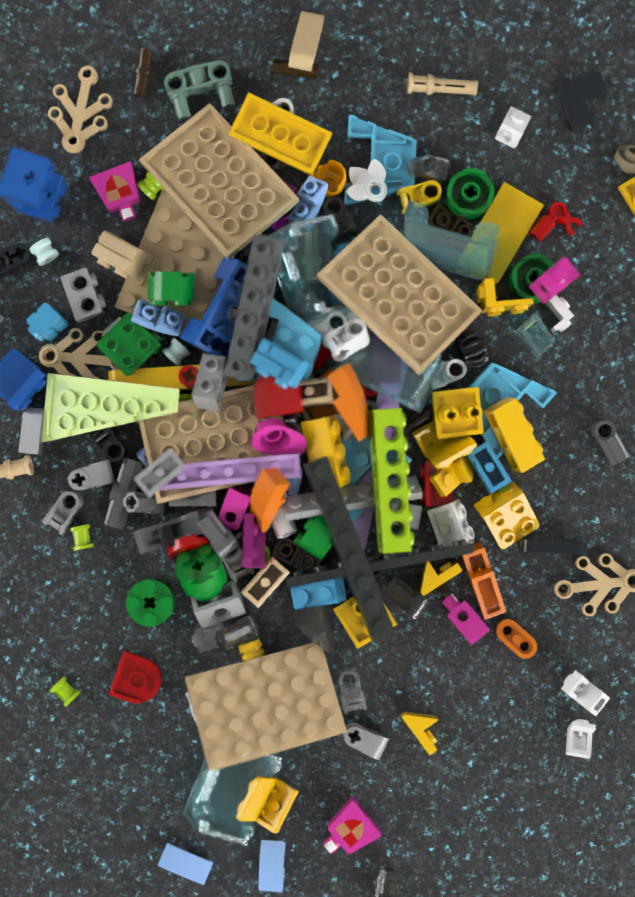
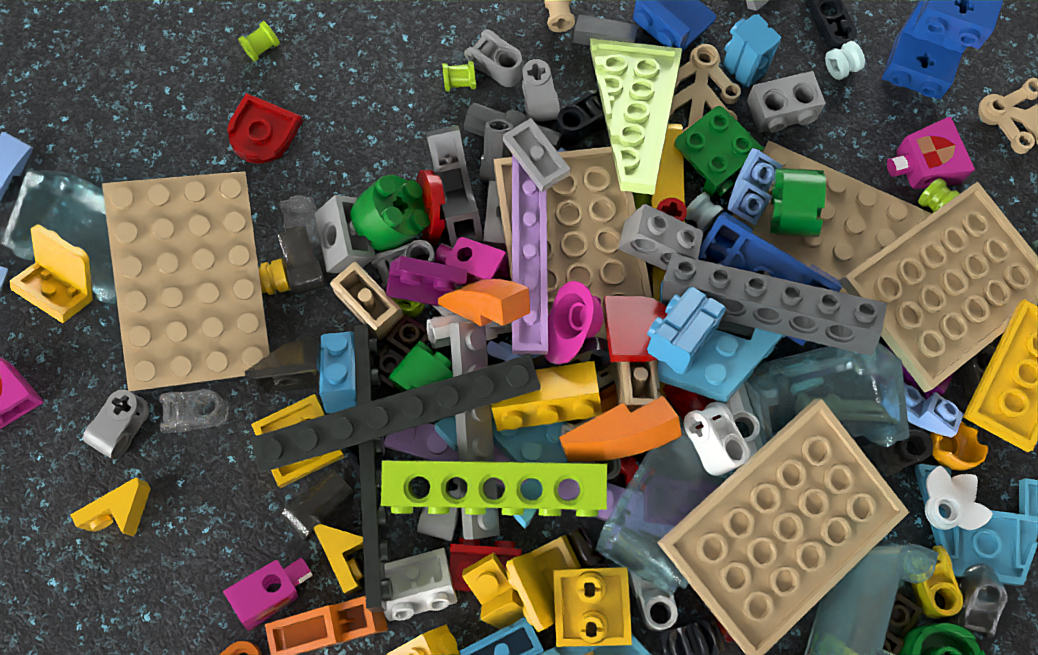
camera: 90 degrees right, 15 degrees down
(119, 254) = (841, 147): tan brick -> none
(137, 602) = (359, 150): green brick -> none
(220, 537) = (433, 239): dark grey piece -> none

